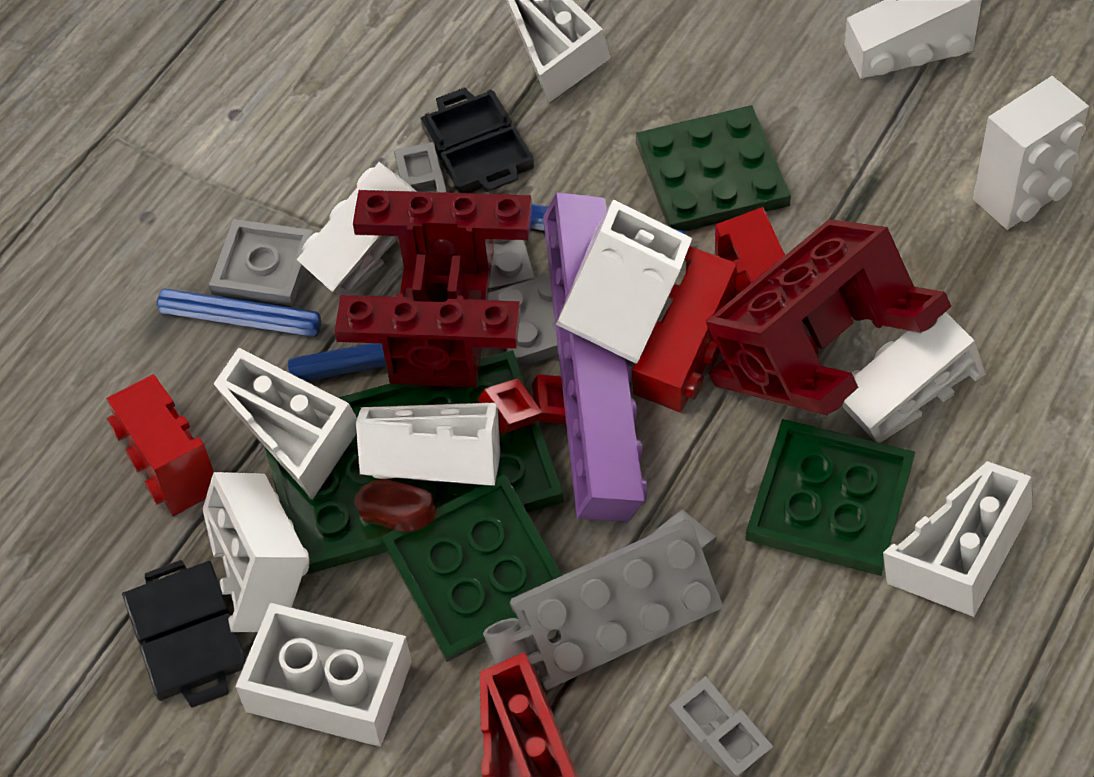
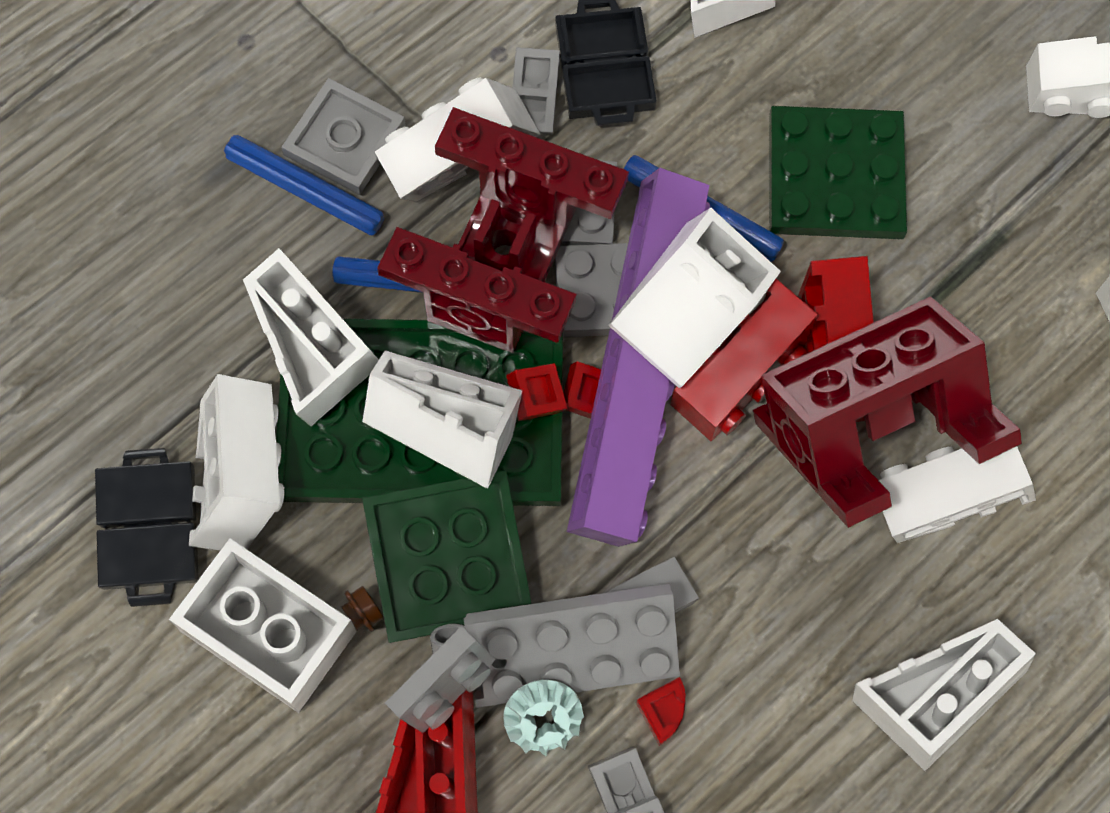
camera: 10 degrees right, 15 degrees up
(161, 445) = (180, 314): red wedge -> none
(395, 505) = (387, 467): clear red tile -> none
(417, 635) = (362, 609): none -> reddish brown plate
(509, 644) = (429, 693): none -> light grey plate
(600, 656) = (537, 699): none -> light aqua gear
(718, 640) = (664, 709): none -> red tile
(830, 496) = (828, 592): dark green plate -> none

